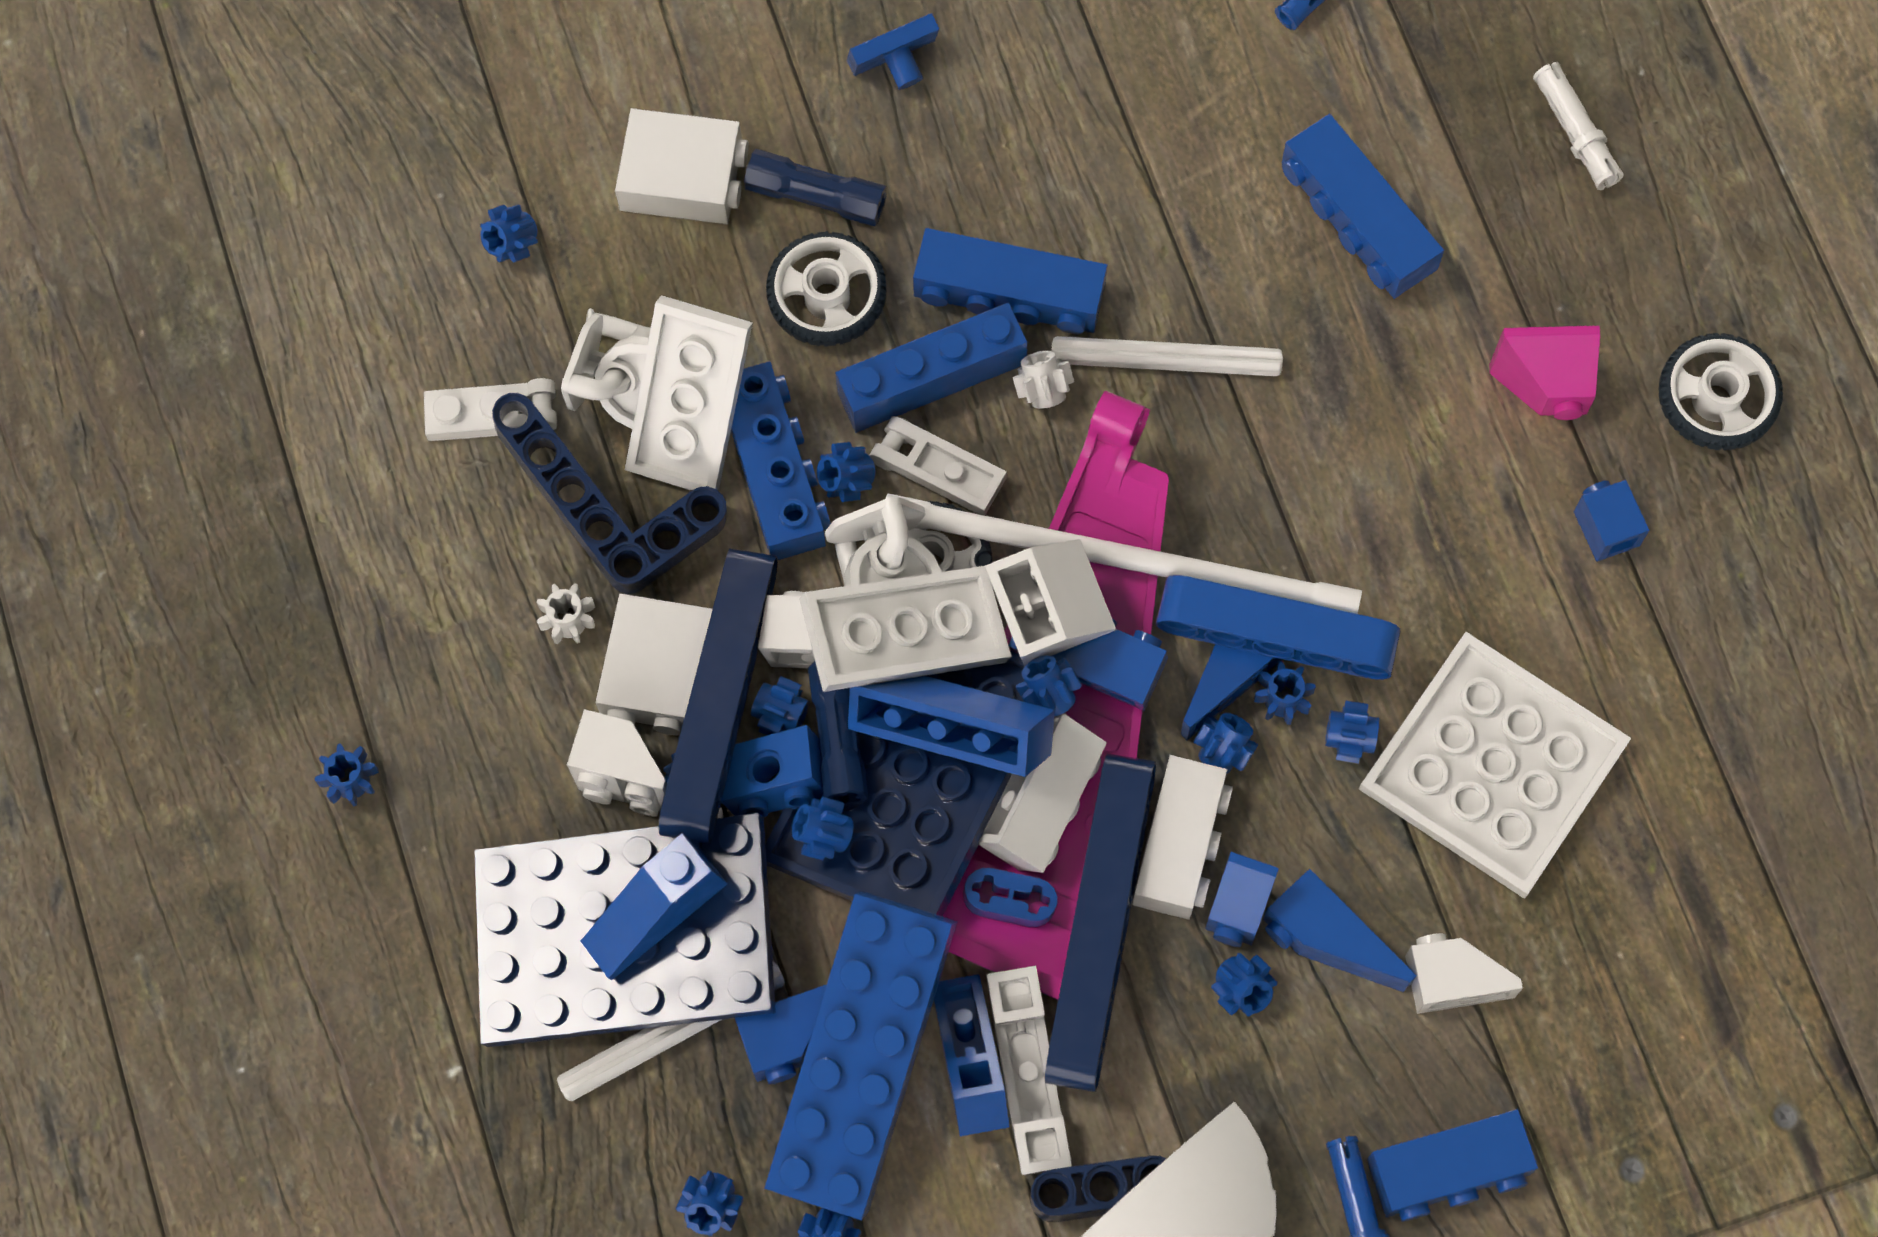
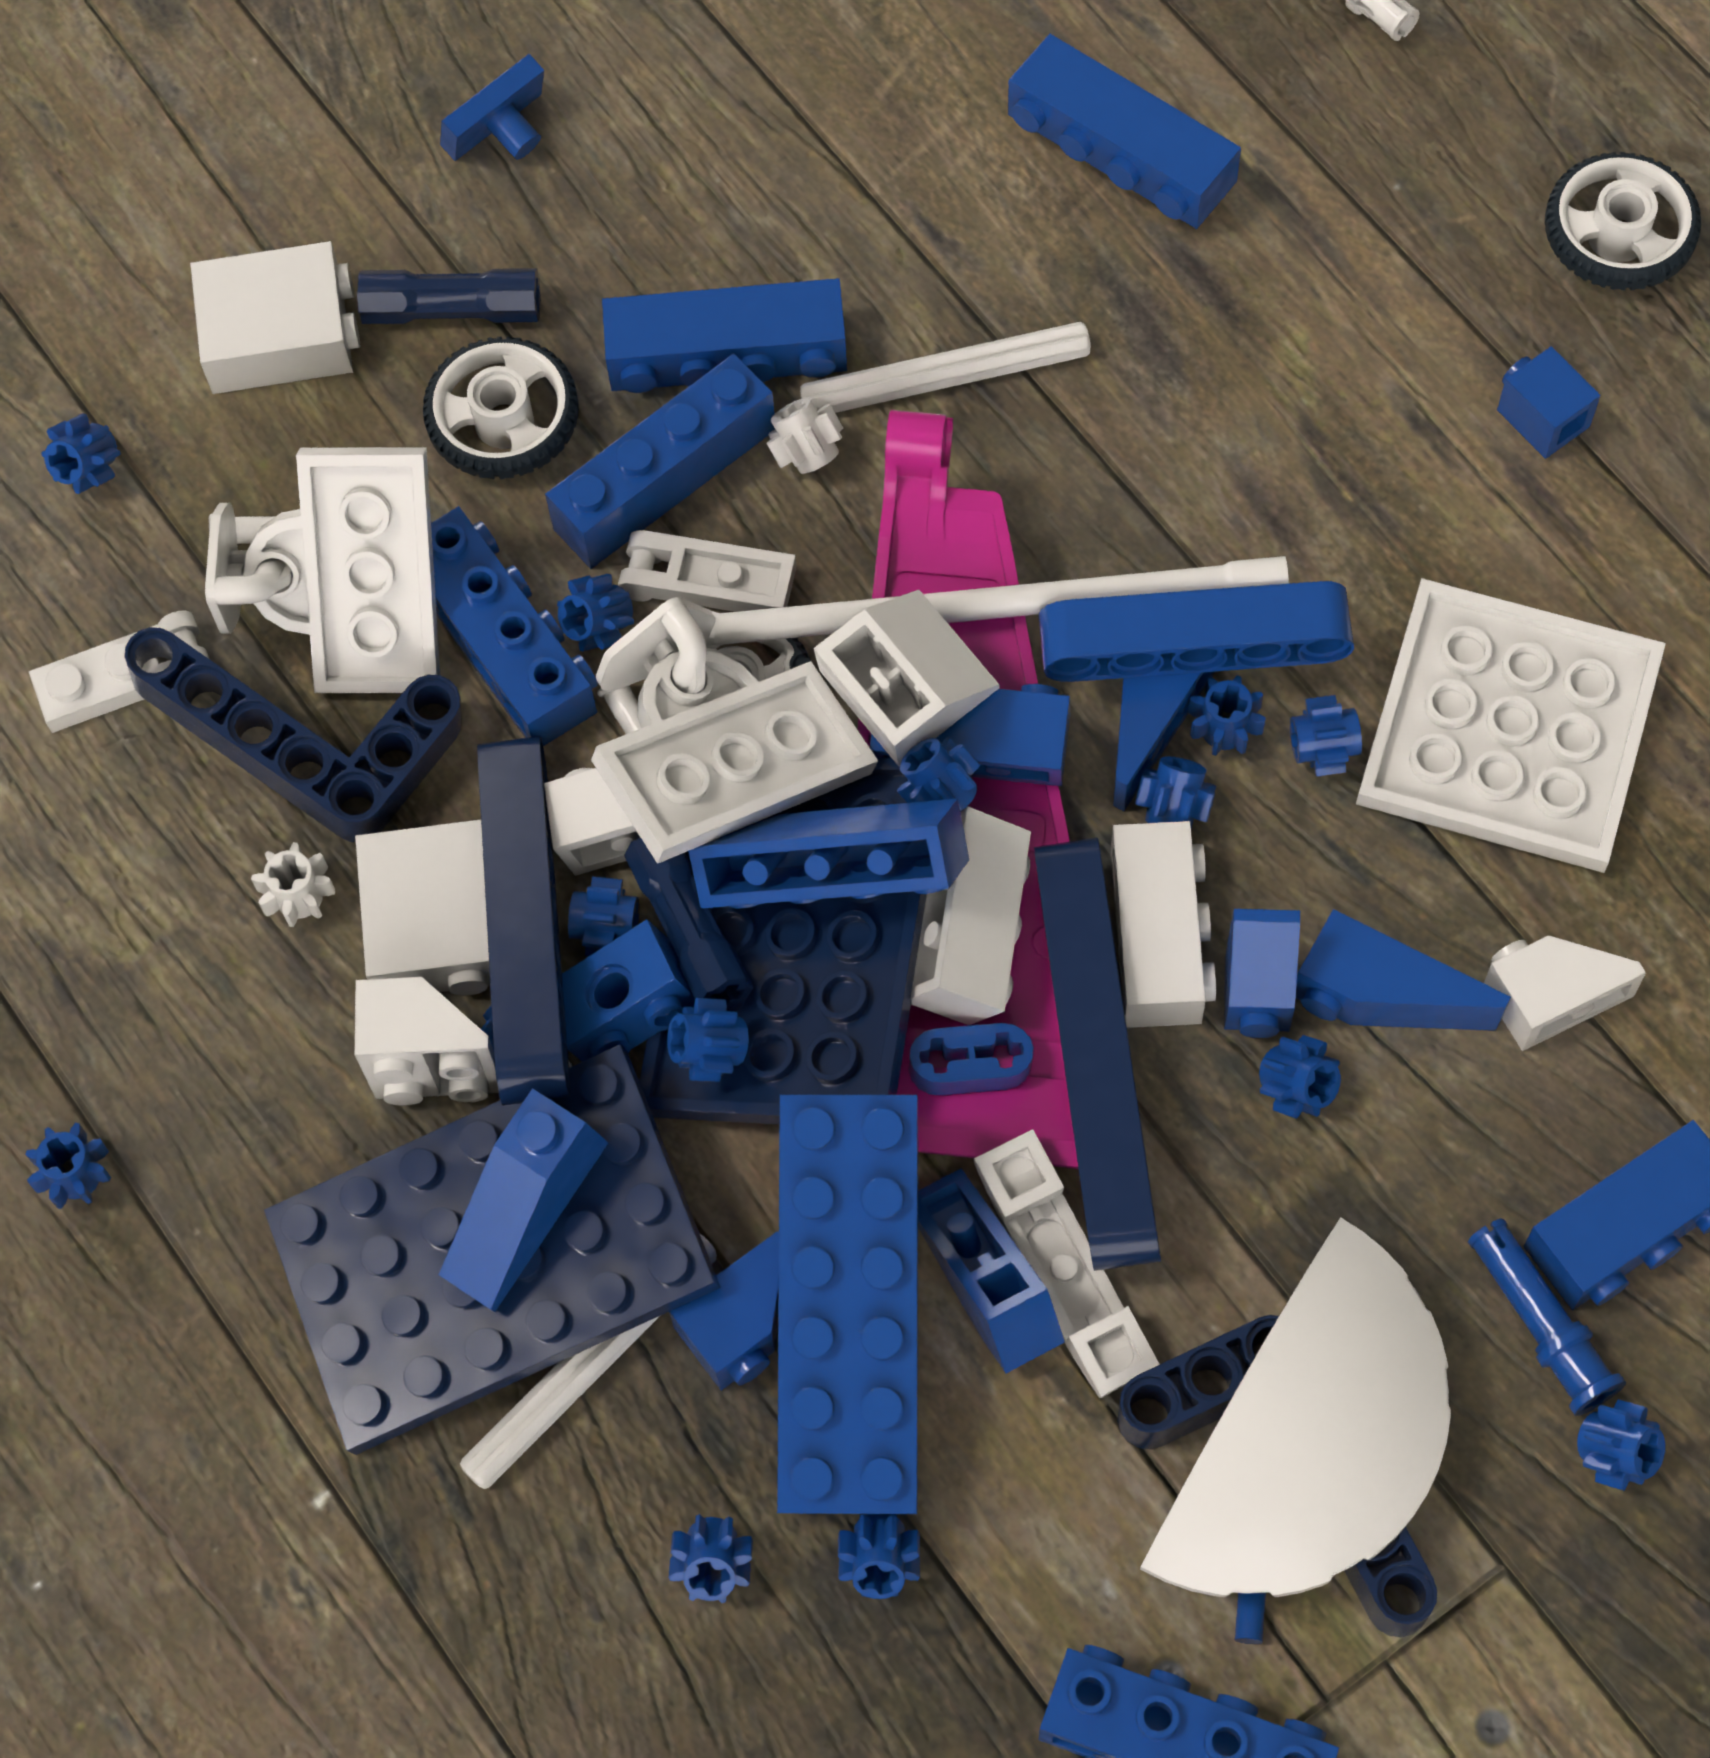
camera: 15 degrees left, 5 degrees down
(1549, 367) = (1412, 246): dark pink slope -> none

